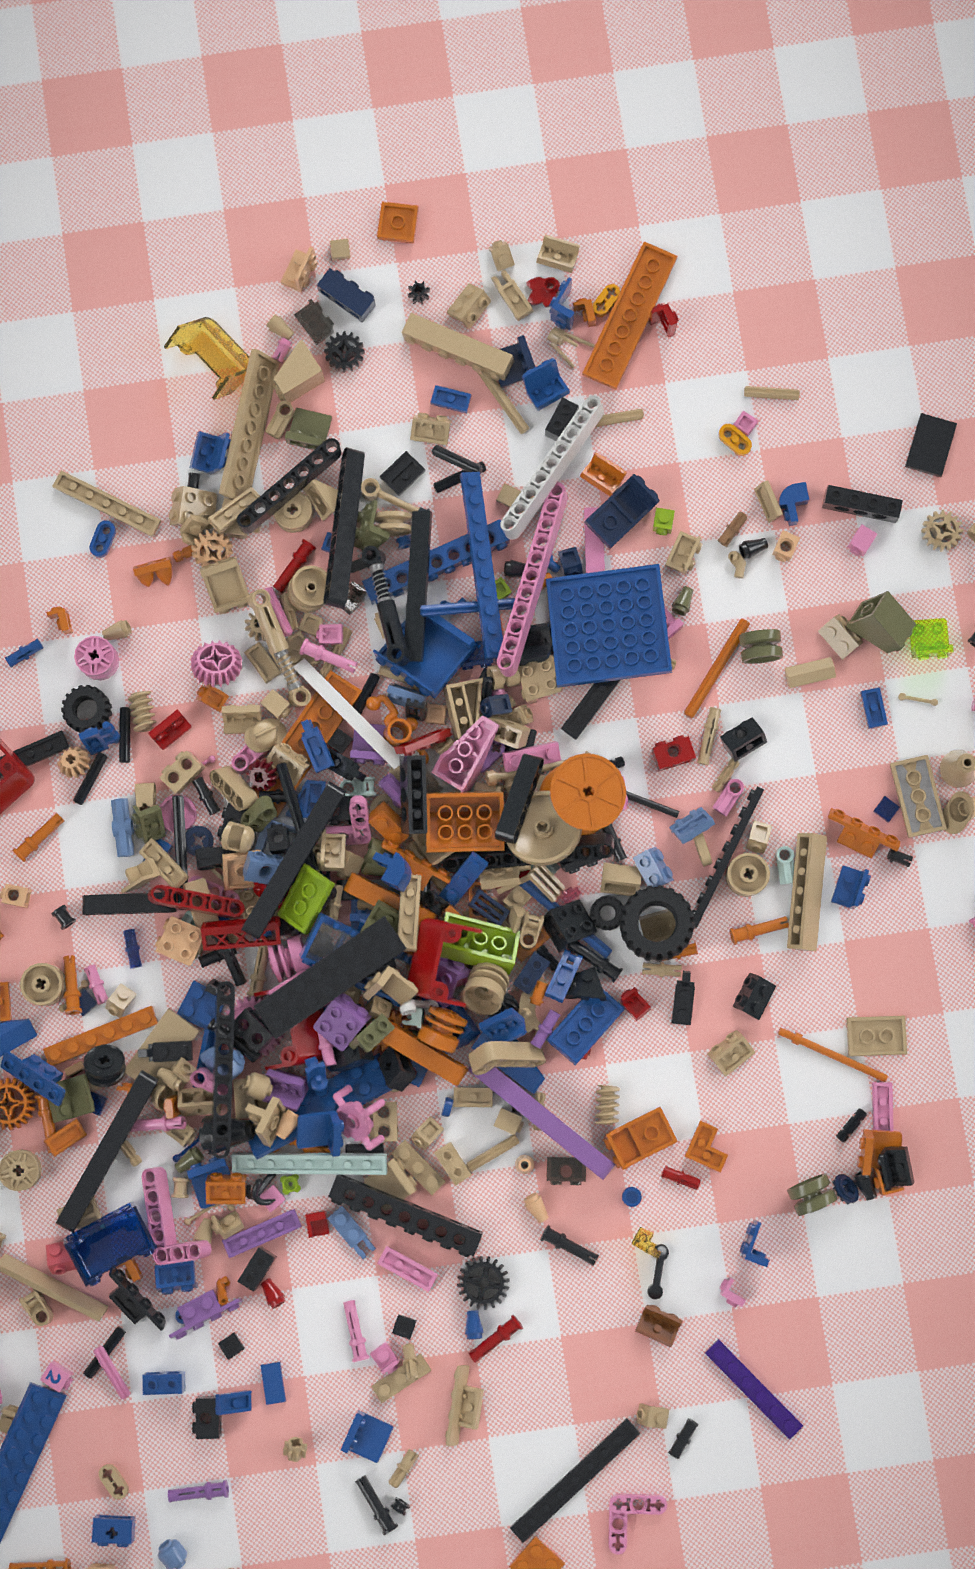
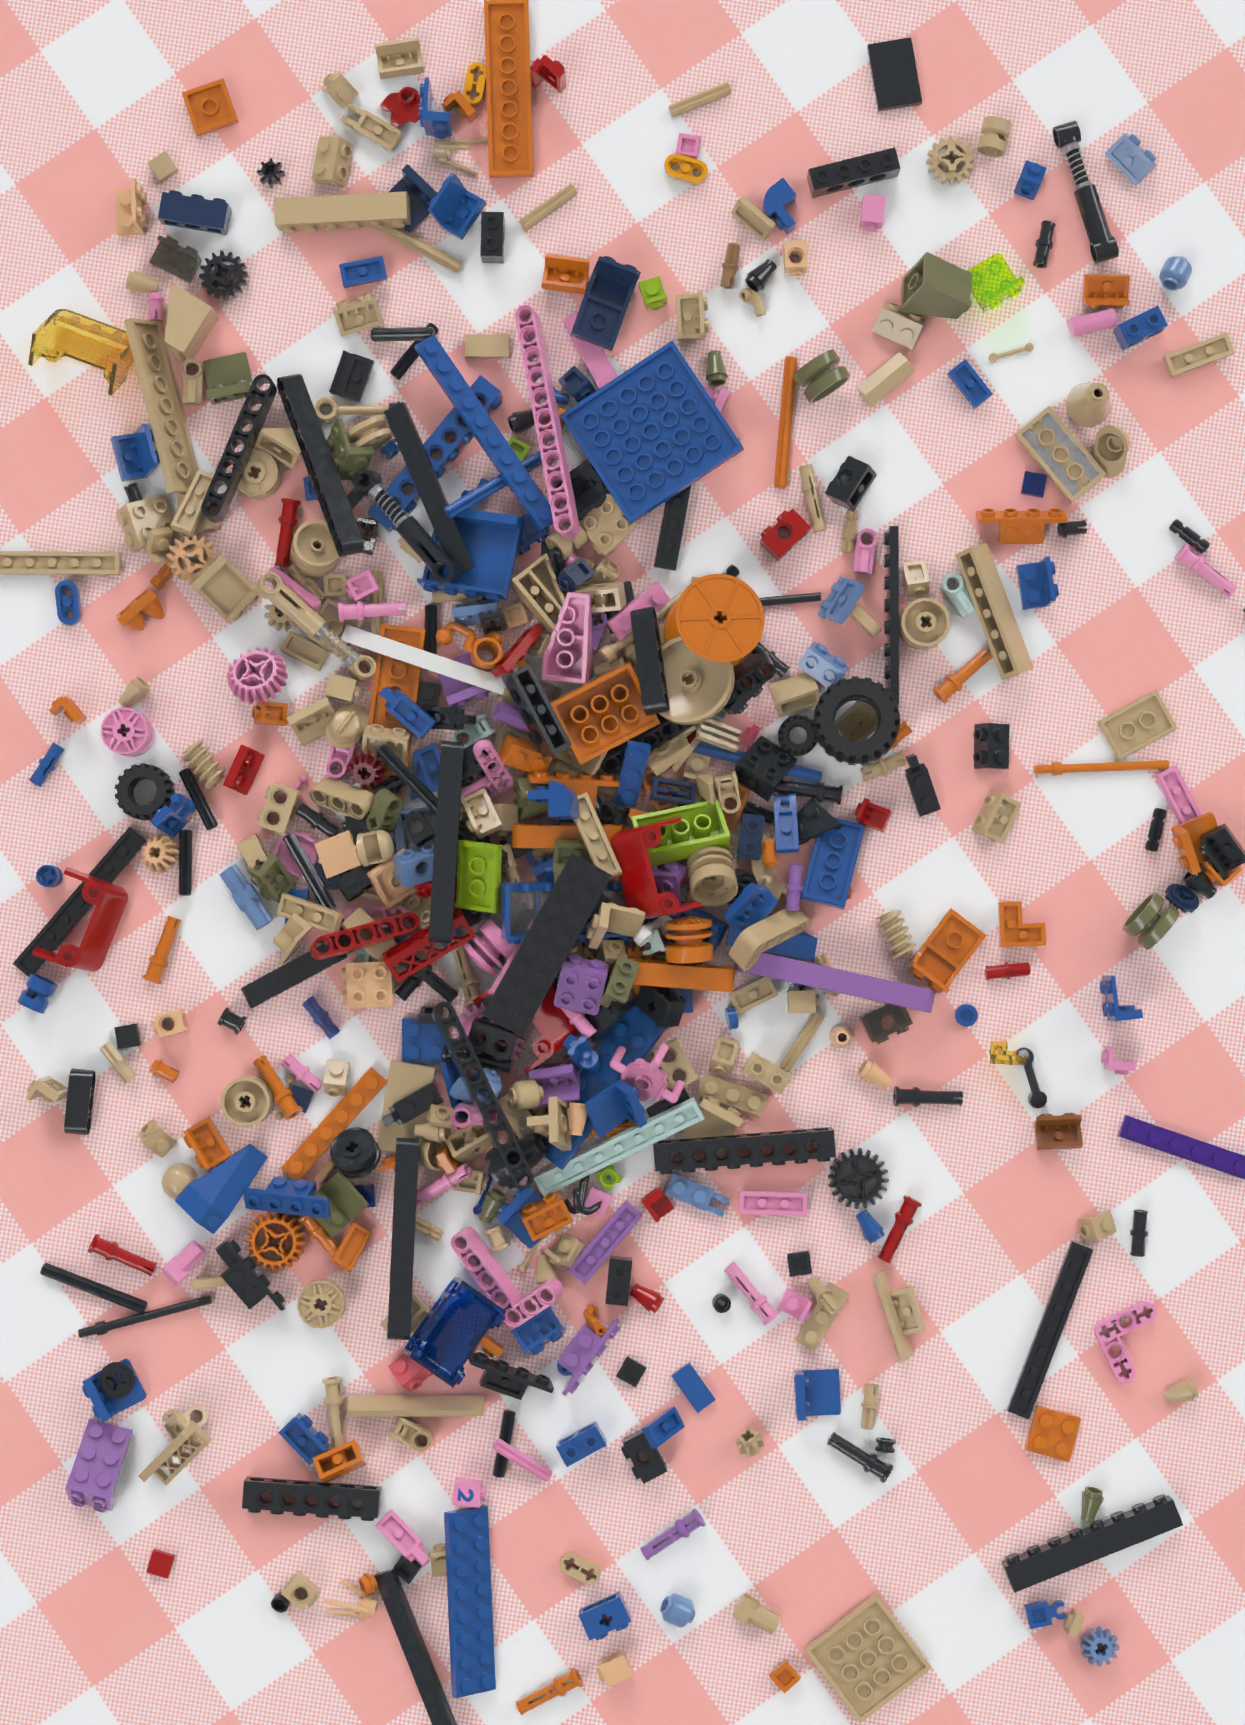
camera: 30 degrees left, 5 degrees up
(208, 829) = (338, 854): none -> light nougat piece
(324, 1330) = (717, 1306): none -> black hinge
(552, 475) = (511, 301): white beam -> none

